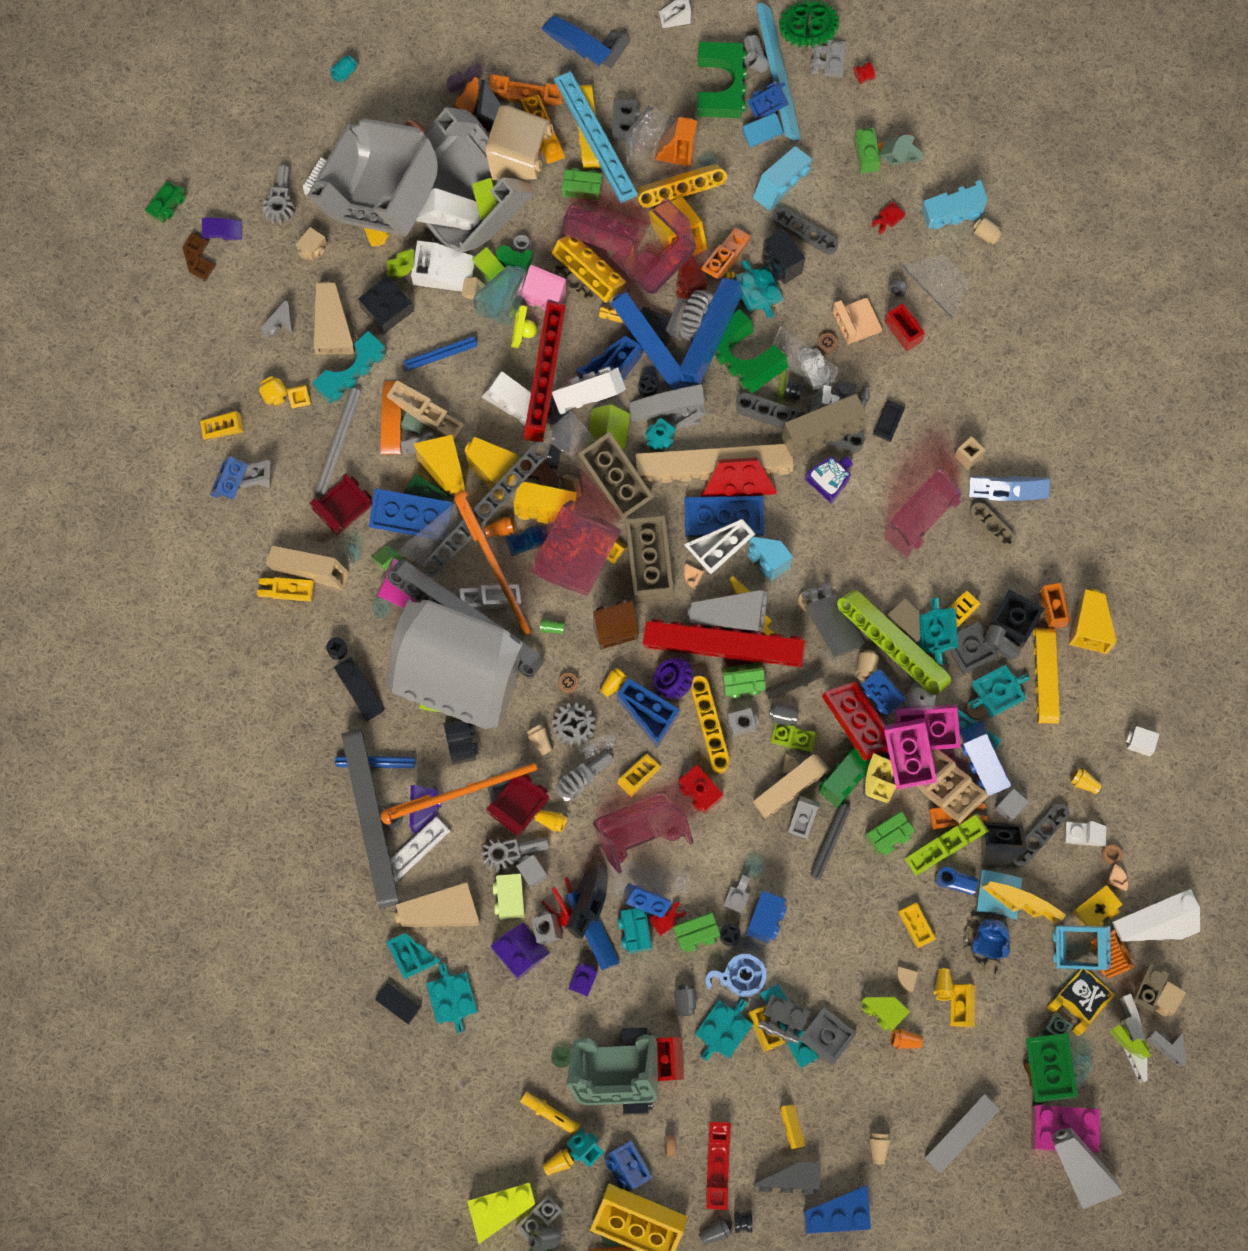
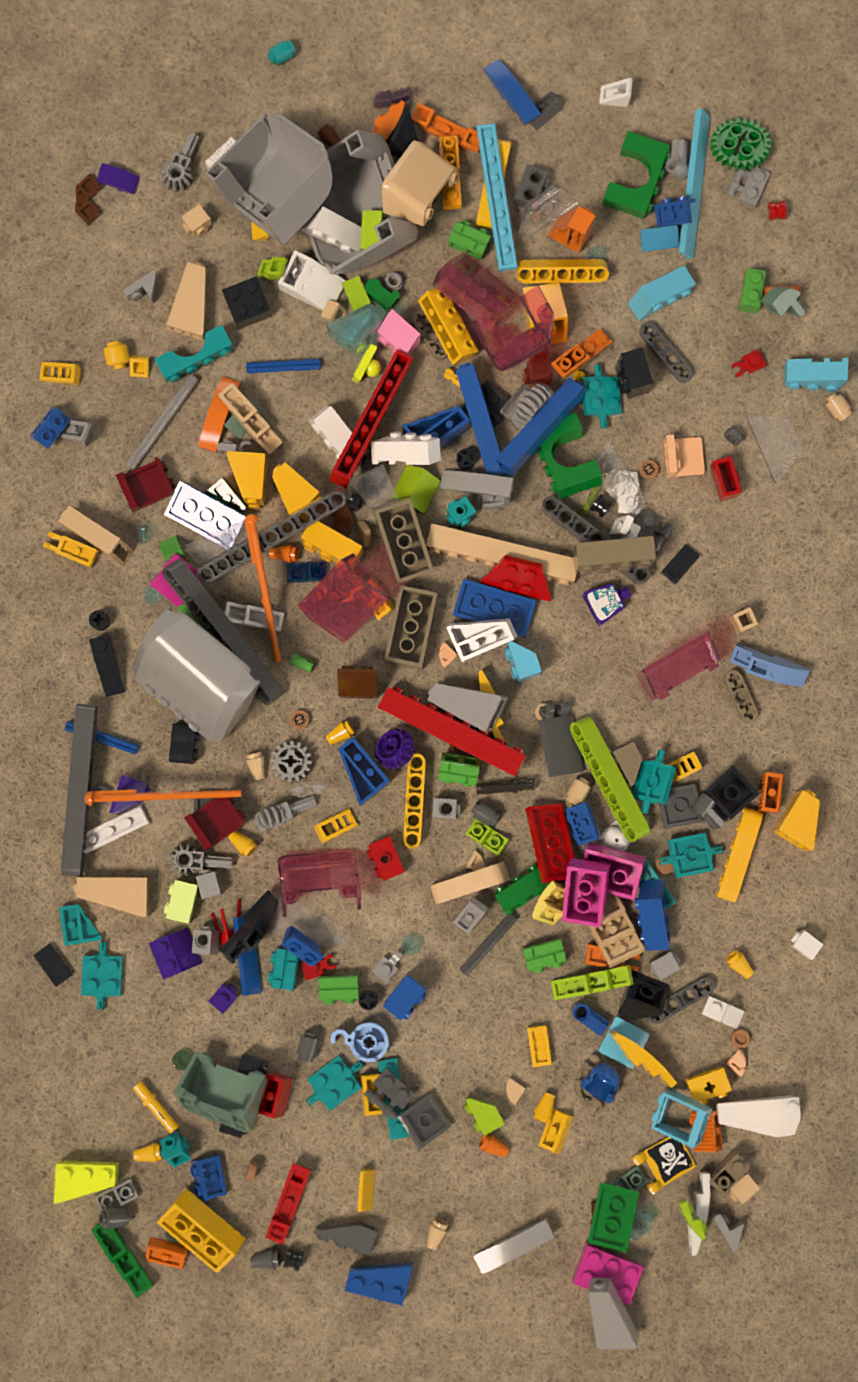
camera: 15 degrees right, 10 degrees up
(165, 202) = (74, 135): green bracket -> none

